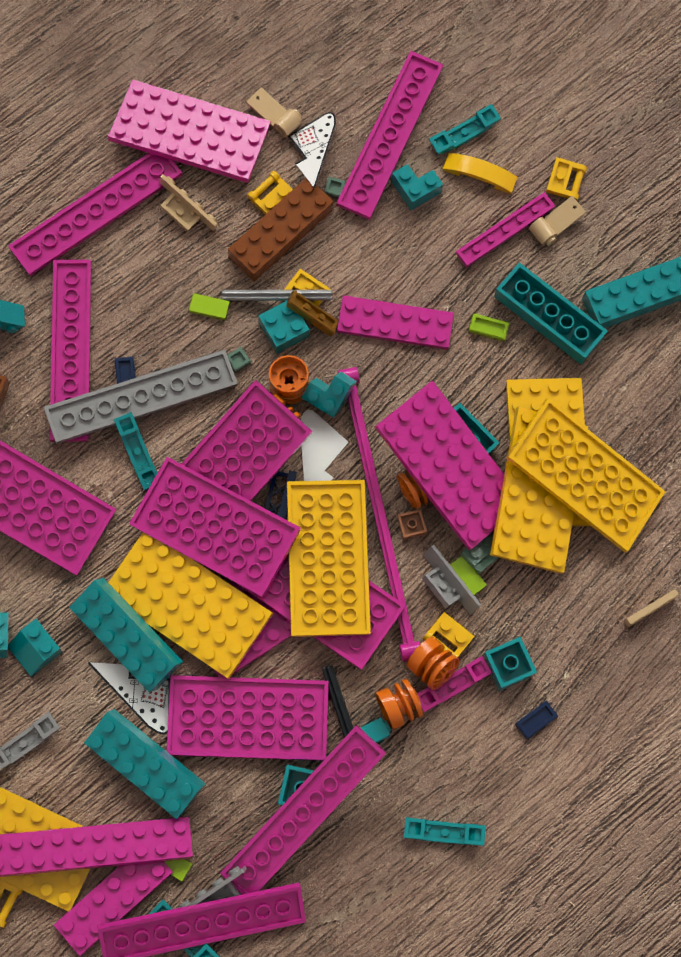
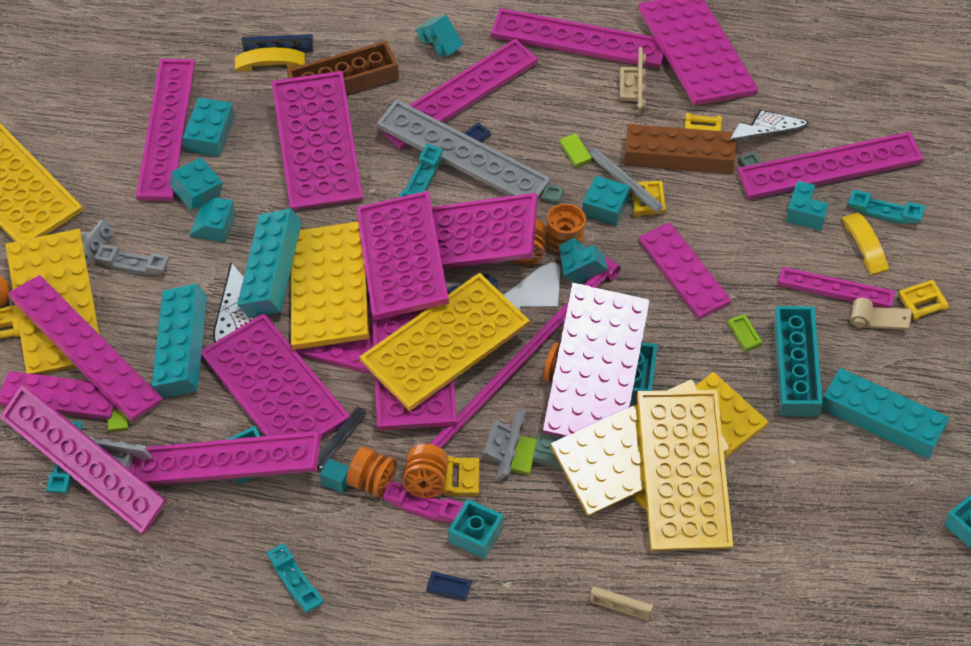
camera: 60 degrees right, 20 degrees down
(269, 109) = (767, 83): tan door -> none
(312, 313) = (632, 207): pearl gold tile -> none
(411, 524) = (530, 388): nougat piece -> none

